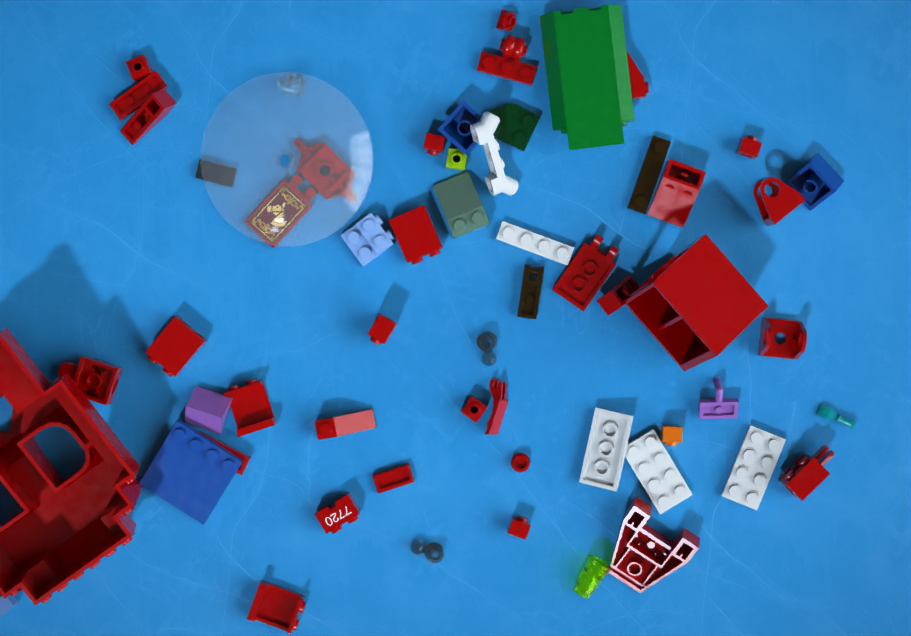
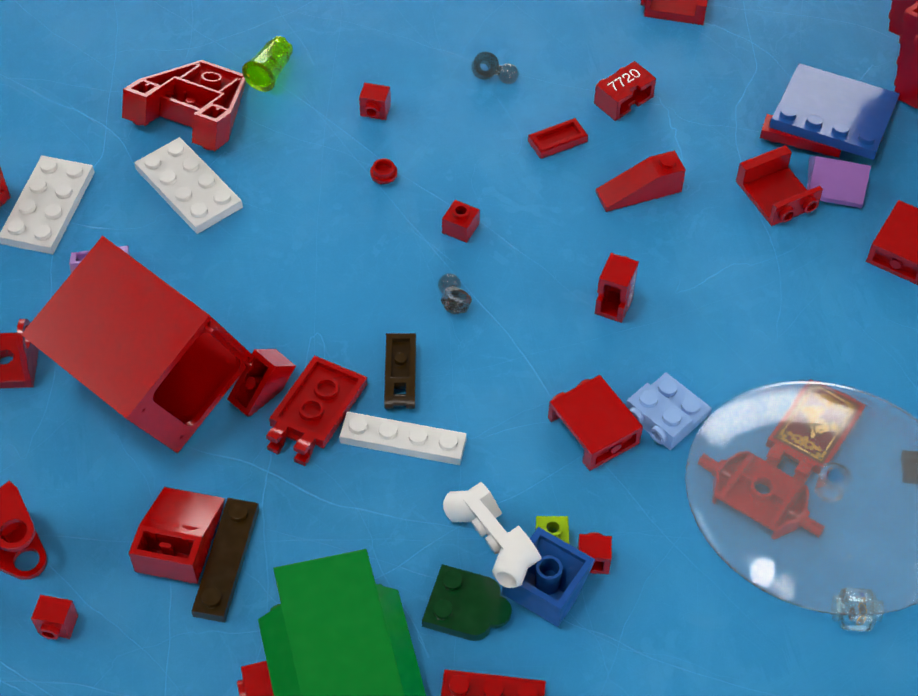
camera: 170 degrees right, 35 degrees down
(461, 205) = (530, 469): sand green slope -> none
(500, 403) = (424, 231): red arm -> none
(606, 449) = (262, 195): white plate -> none
(671, 435) = (168, 223): orange plate -> none

